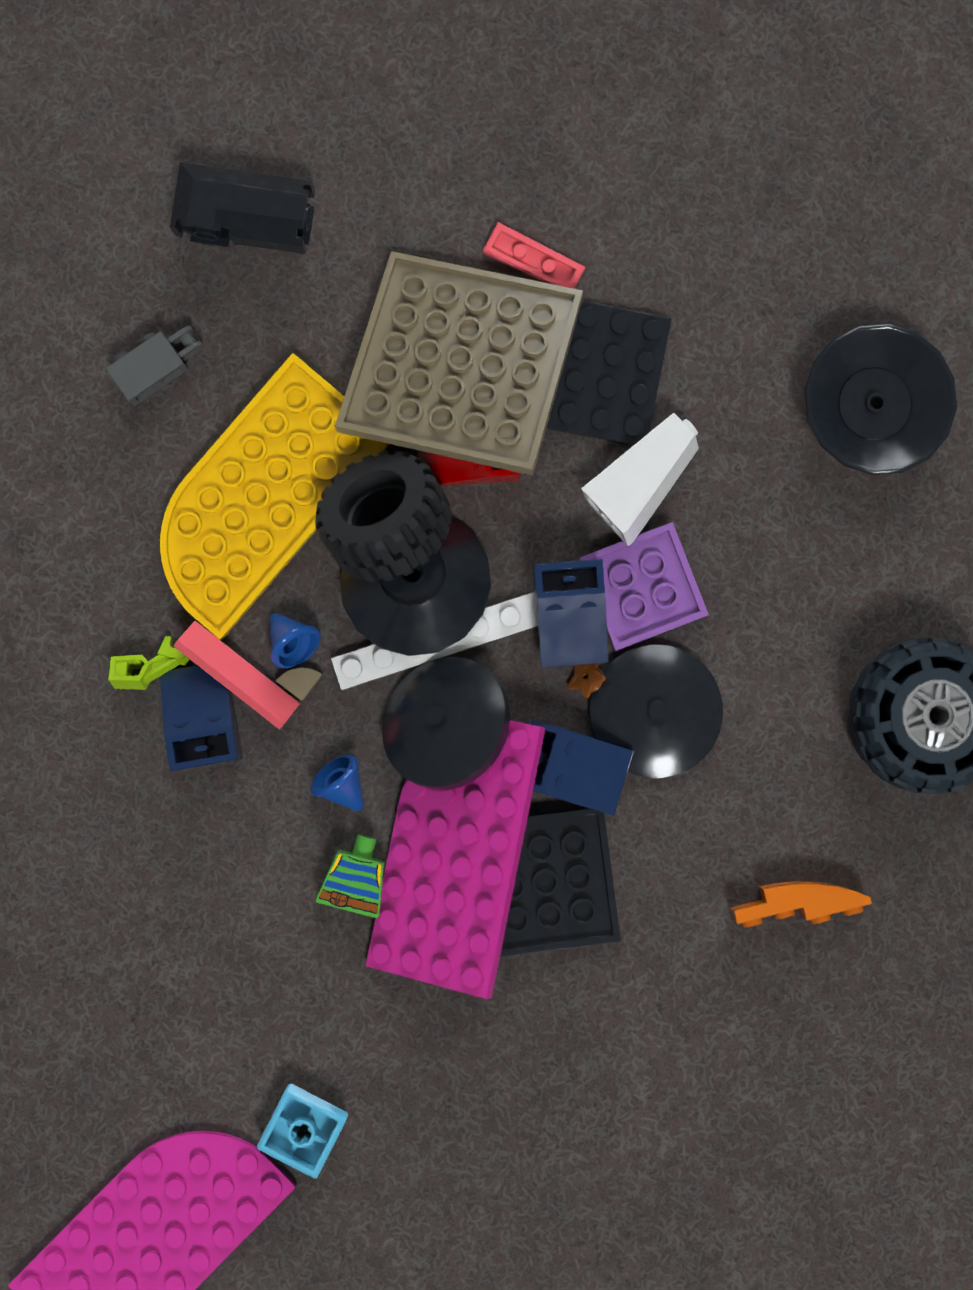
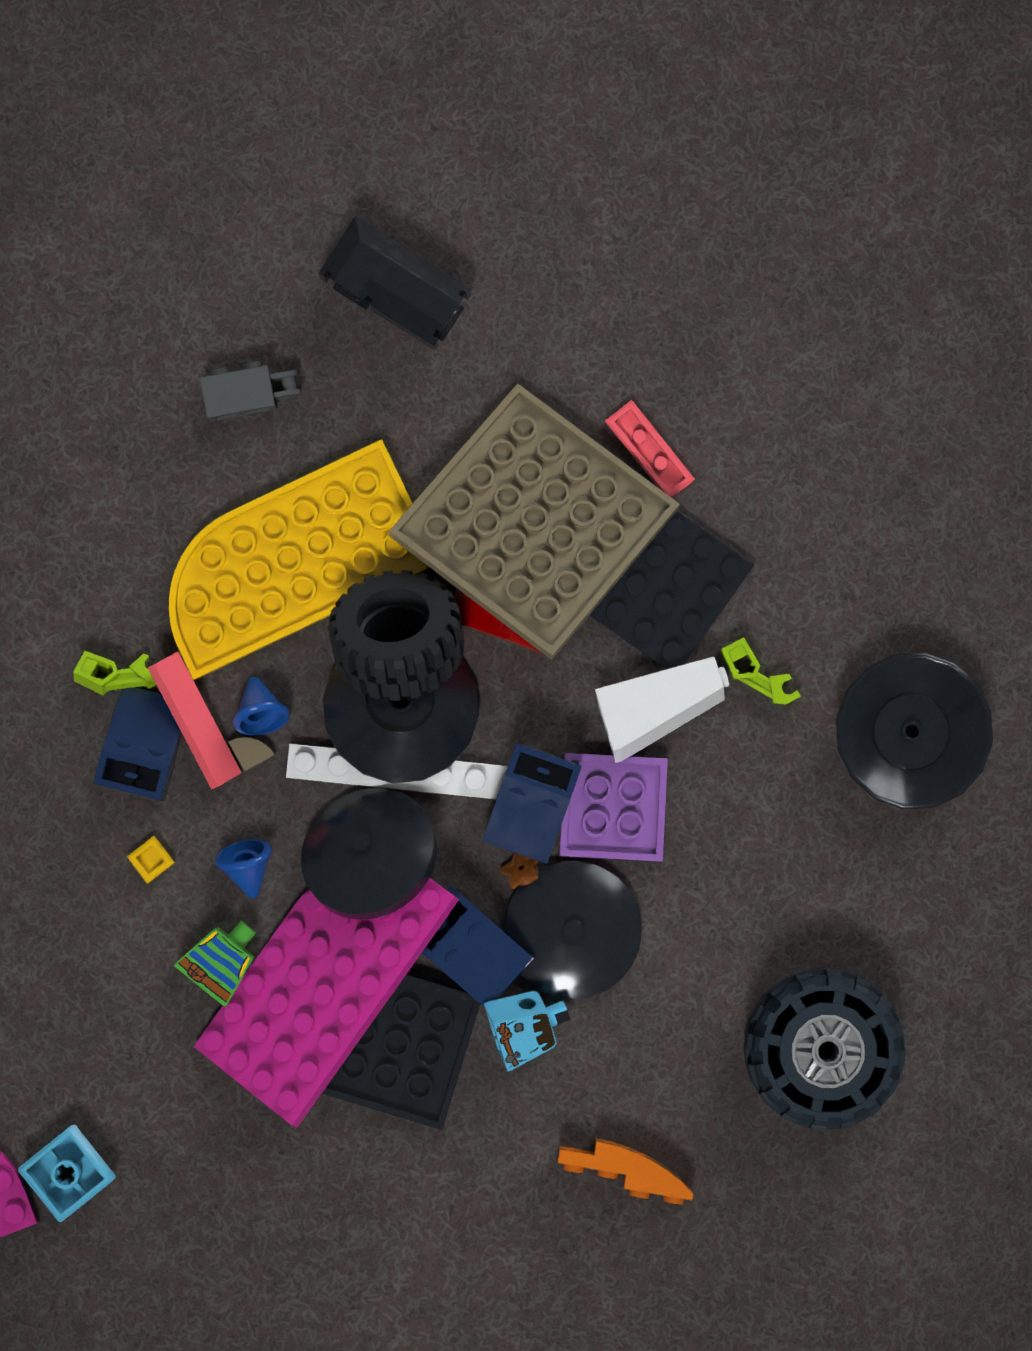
camera: 25 degrees right, 0 degrees up
(253, 816) = (151, 859): none -> yellow tile
(652, 816) = (523, 1026): none -> medium azure torso
(730, 420) = (768, 686): none -> lime piece

